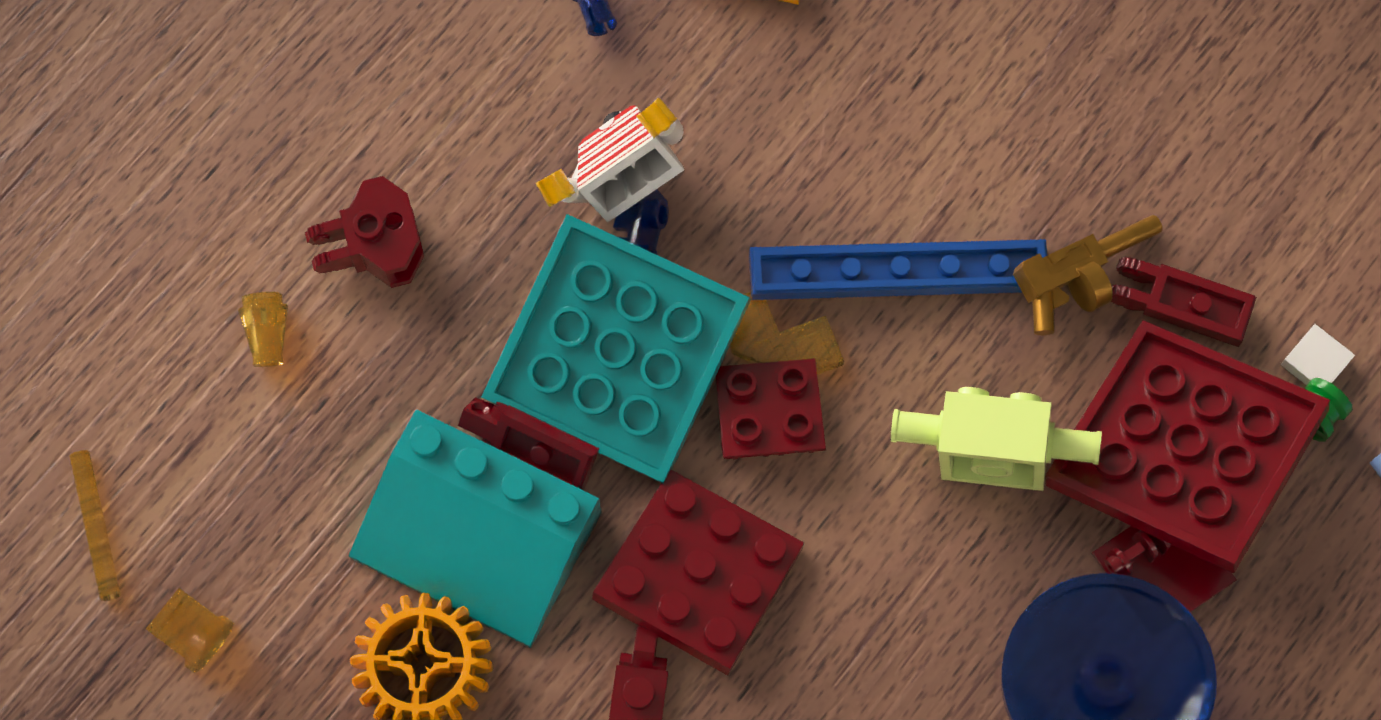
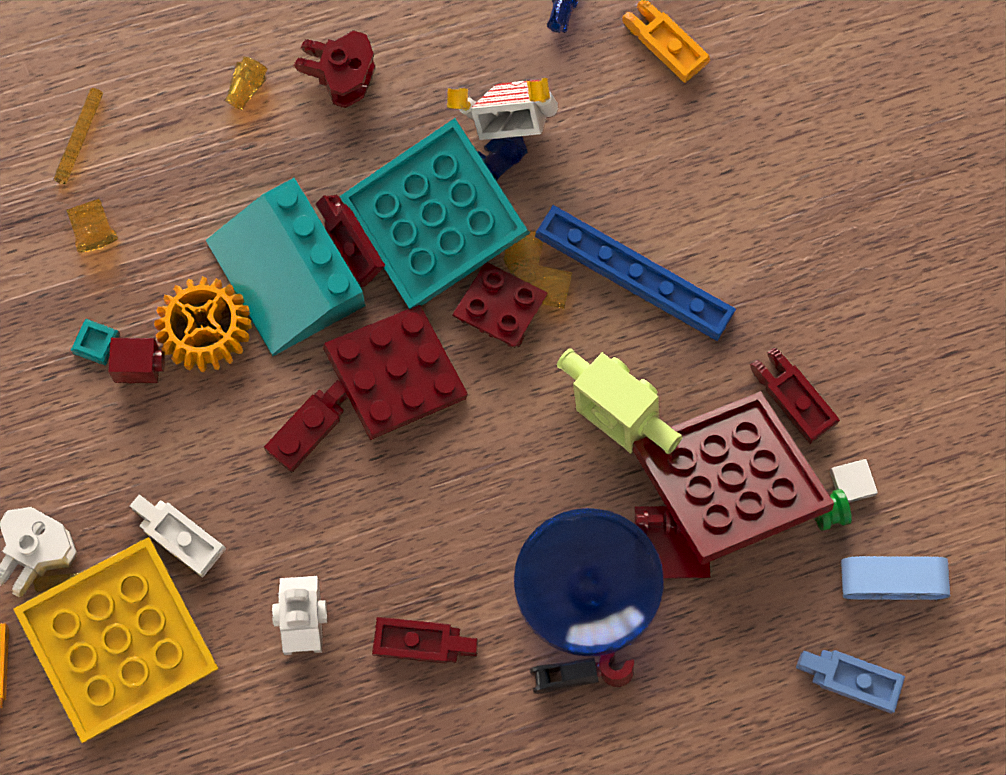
camera: 30 degrees right, 0 degrees up
(1079, 268) = (744, 336): pearl gold piece -> none

